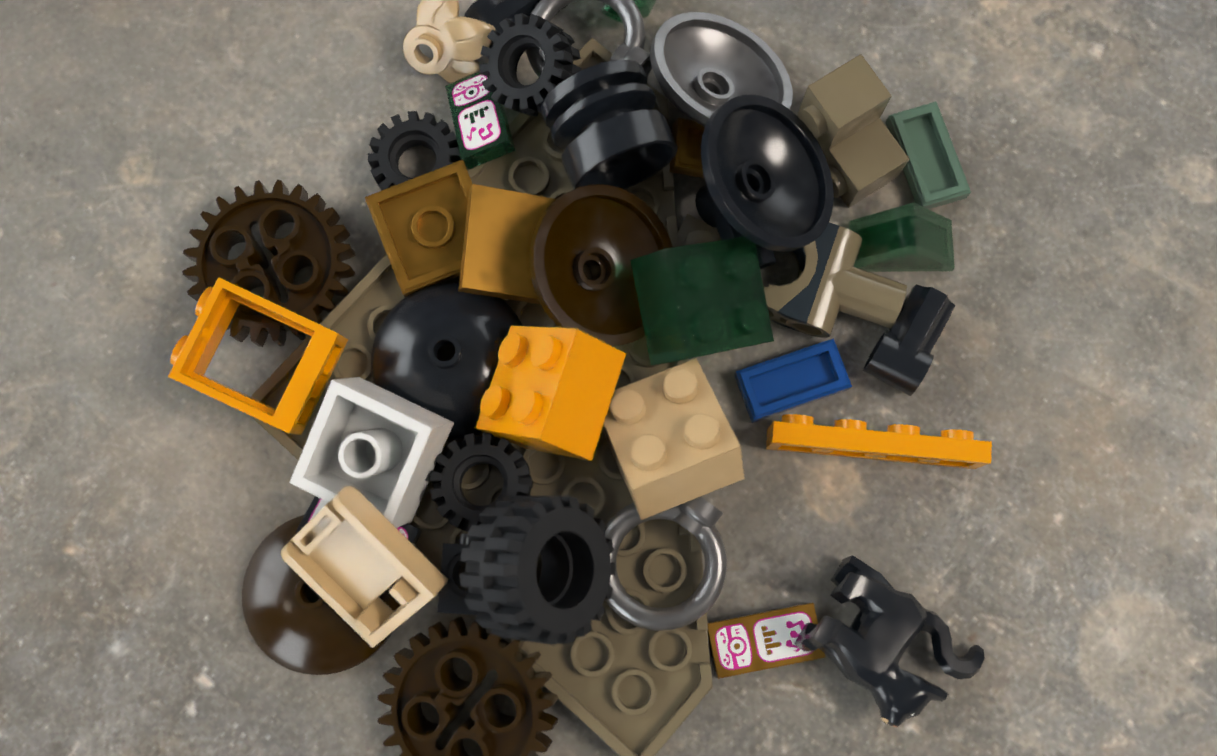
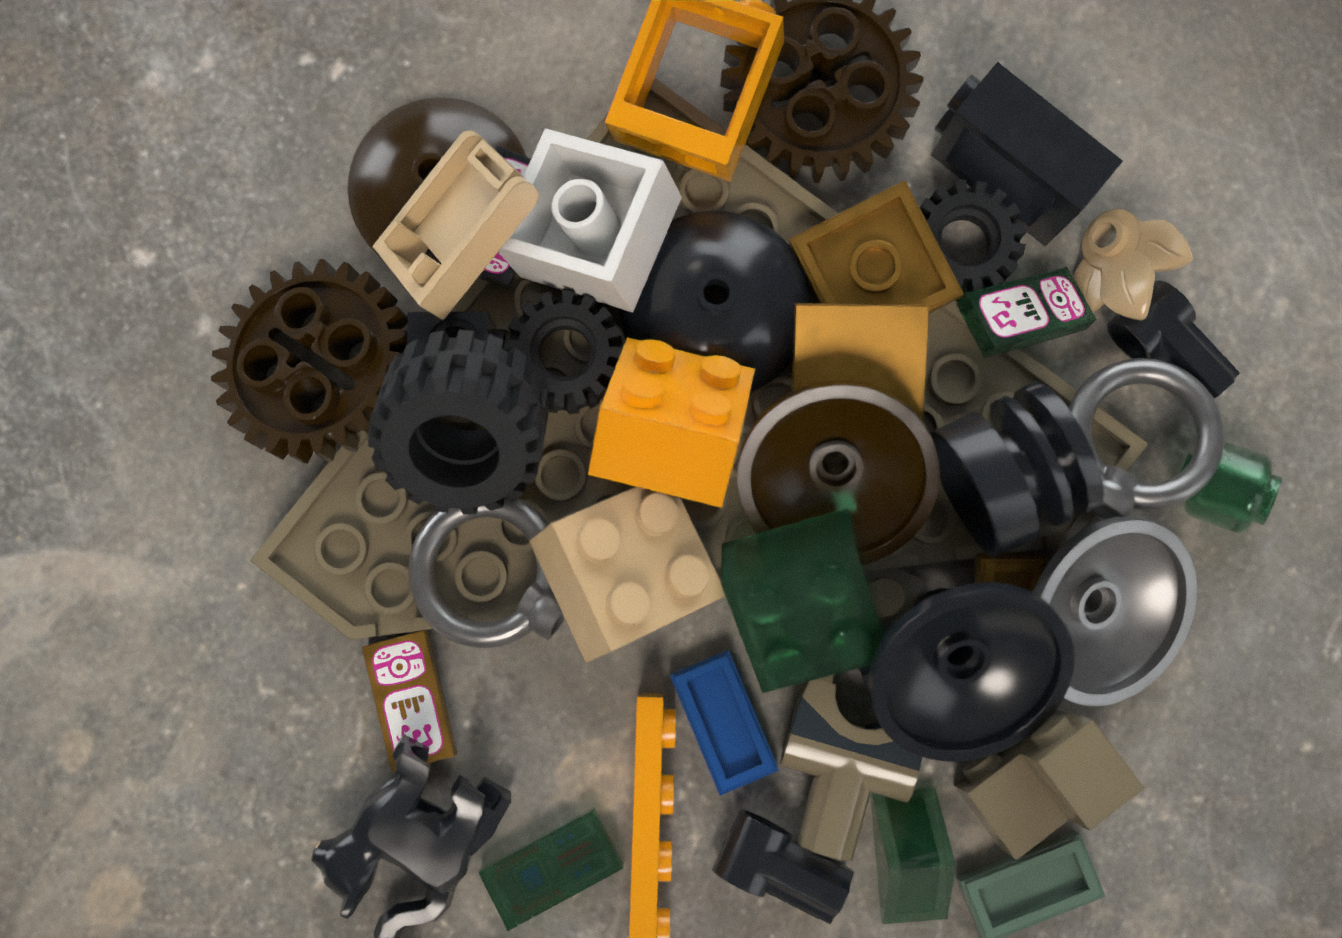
camera: 85 degrees right, 5 degrees up
(347, 104) = (1026, 148): none -> black window
(508, 49) = (1104, 334): black tyre -> none
(907, 528) = (551, 868): none -> clear green tile

